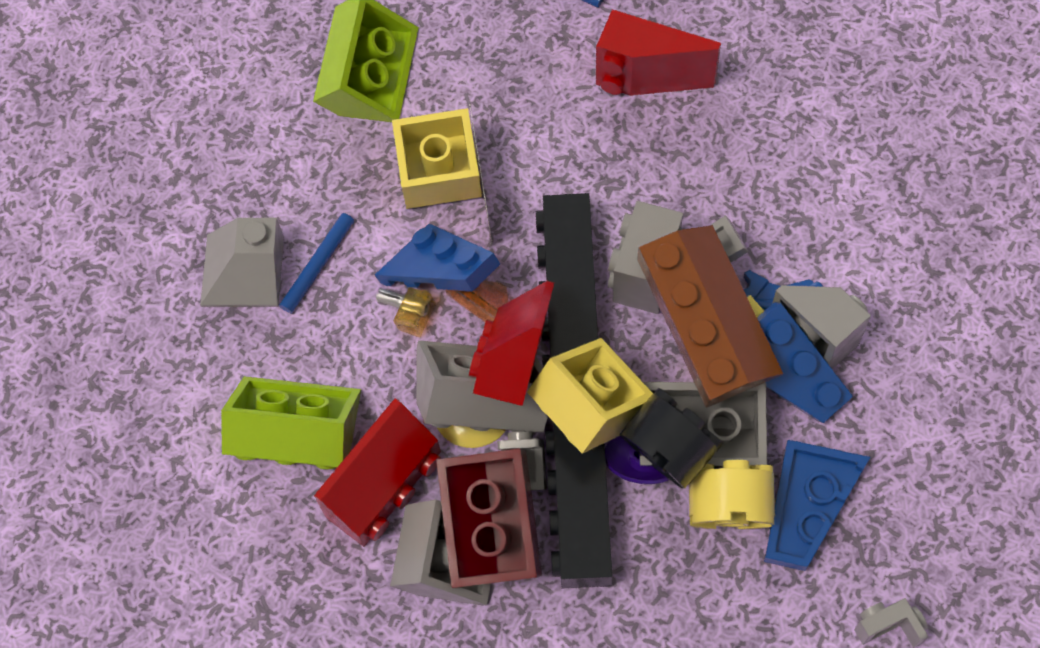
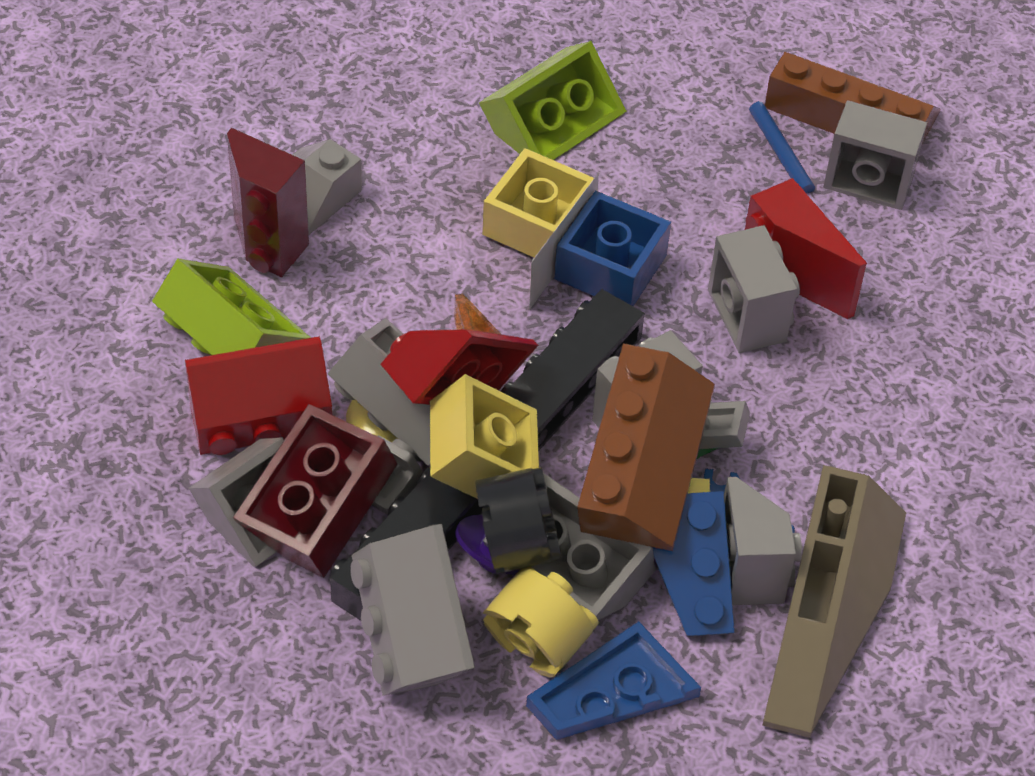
camera: 30 degrees right, 15 degrees down
(243, 311) = (268, 202): none -> dark red slope
(316, 263) = (369, 225): blue bar -> none
(413, 309) = (411, 308): clear yellow piece -> none
(441, 260) = (465, 281): blue wing -> none
(519, 156) = (612, 248): none -> blue brick
(646, 116) = (752, 288): none -> light grey brick
(651, 564) = (411, 611): none -> light grey slope
(870, 264) = (836, 595): none -> dark tan wedge

